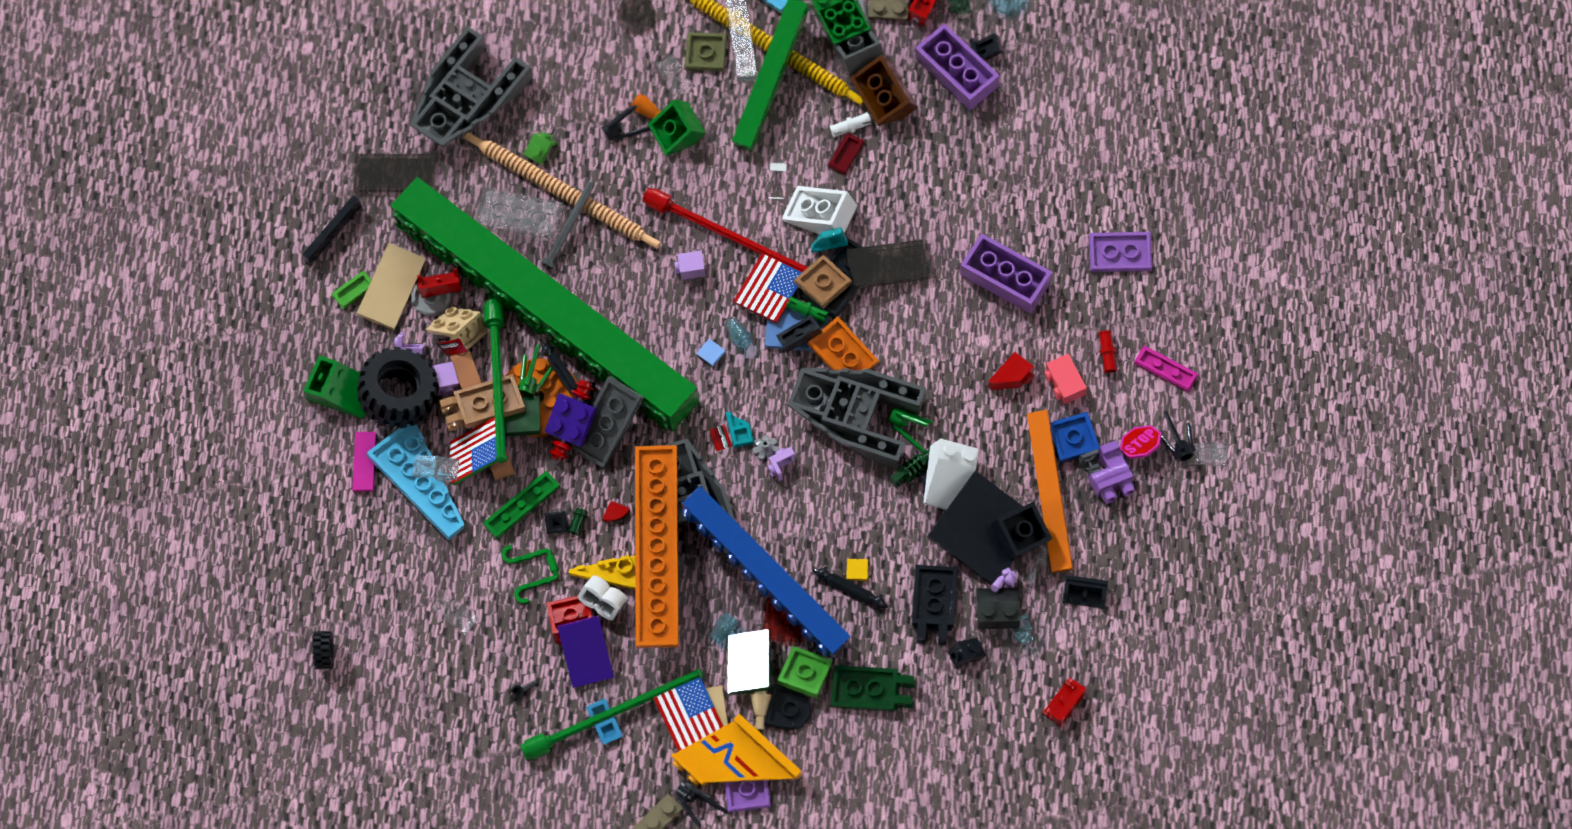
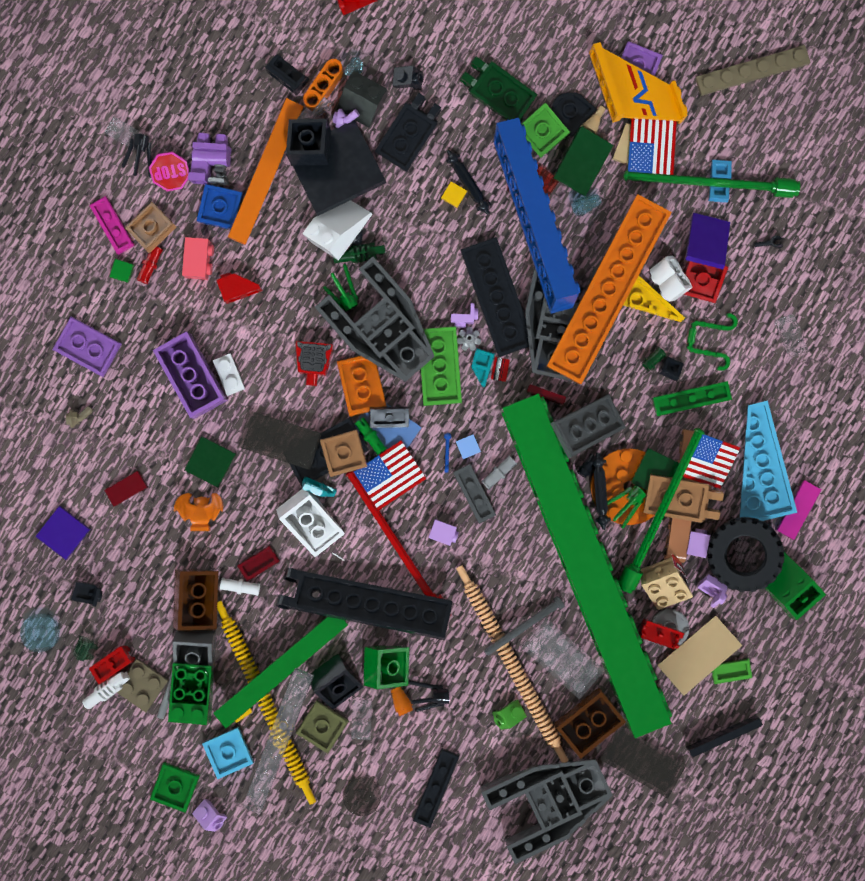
camera: 155 degrees left, 20 degrees up
(435, 466) = (748, 466): clear slope -> none
(464, 174) = (589, 723): none -> reddish brown brick
(570, 420) = (617, 444): dark purple plate -> none
(572, 56) = (436, 787): none -> black tile
(615, 512) = (619, 351): red tile -> none
(663, 434) = (548, 395): none -> dark red tile
(668, 344) = (499, 472): none -> light grey pin
(681, 314) = (474, 493): none -> dark grey plate
(689, 793) = (686, 84): black plant -> none
(716, 91) = (335, 682): none -> black slope
(722, 165) = (367, 604): none -> black hinge
(735, 352) = (447, 436): none -> blue hinge
(738, 333) = (437, 450): clear light blue cone -> none
(763, 498) = (496, 296): none -> black plate
(770, 397) = (442, 373): none -> bright green plate
(901, 349) = (313, 360): none -> torso
(924, 164) = (200, 511): none -> orange animal
(943, 214) = (210, 462): none -> dark green tile
(957, 66) = (120, 587): medium lavender brick -> none
(973, 297) = (229, 374): none -> white plate
(1006, 152) = (126, 488): none -> dark red tile
(1040, 86) = (63, 532): none -> dark purple tile
(1046, 590) = (324, 76): none -> orange beam
(1092, 183) = (74, 418): none -> dark tan plate
(1127, 383) = (150, 227): none -> medium nougat tile
(1130, 333) = (121, 271): none -> green tile

